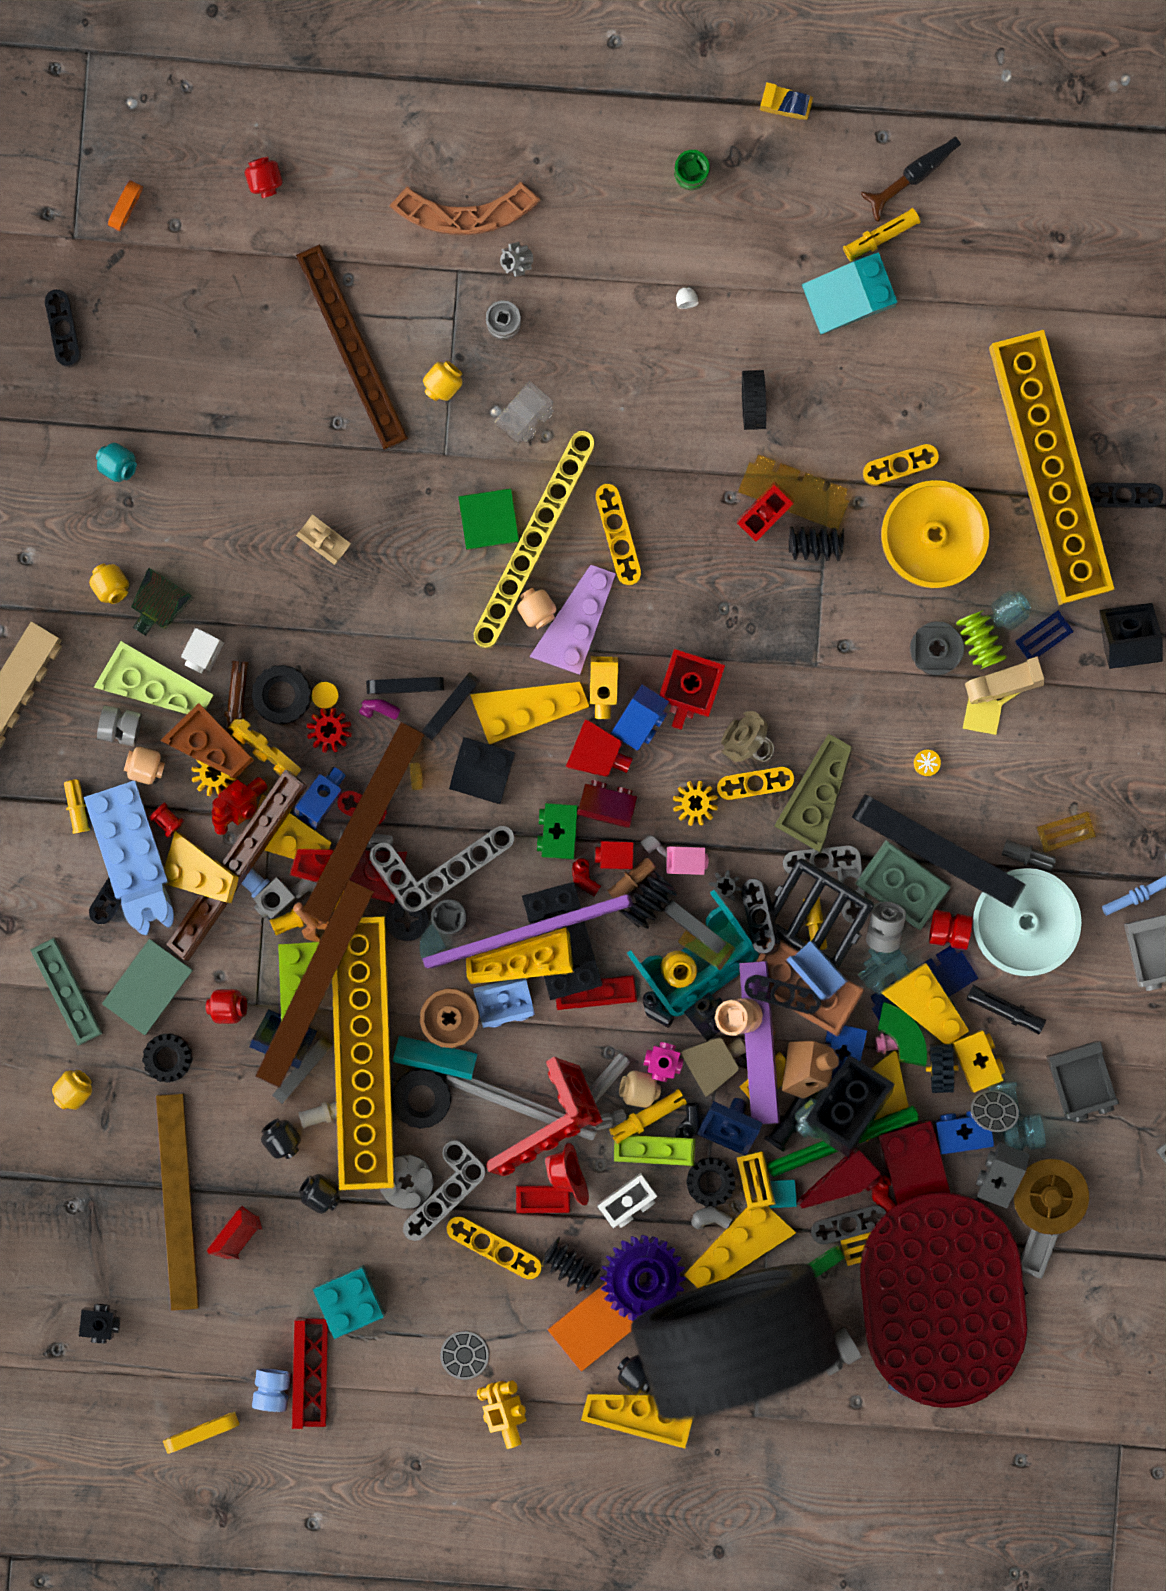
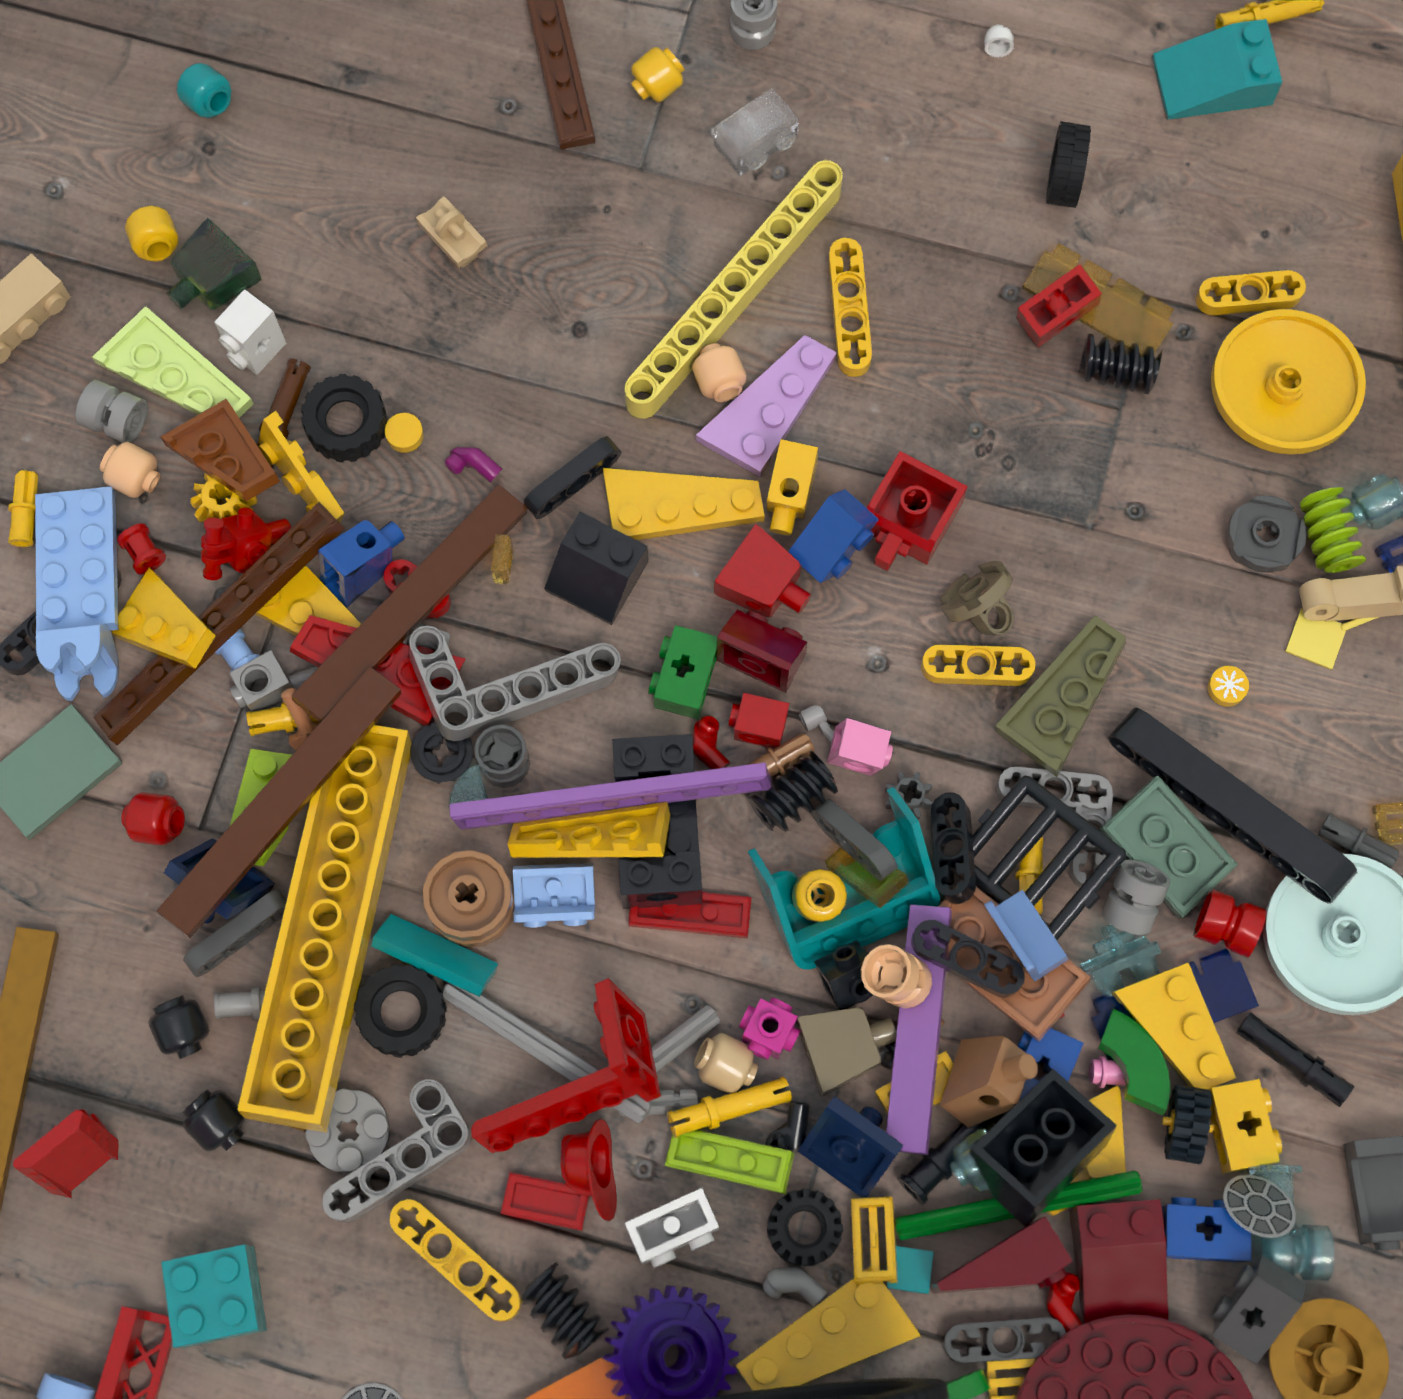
camera: 10 degrees right, 15 degrees down
(167, 1074) = (28, 863): black tyre -> none
(324, 722) = (393, 464): red gear -> none
(405, 685) = (516, 438): black beam -> none
(488, 519) = (678, 254): green tile -> none
(655, 1011) = (771, 952): black arm -> none
(686, 803) = (901, 663): yellow gear -> none

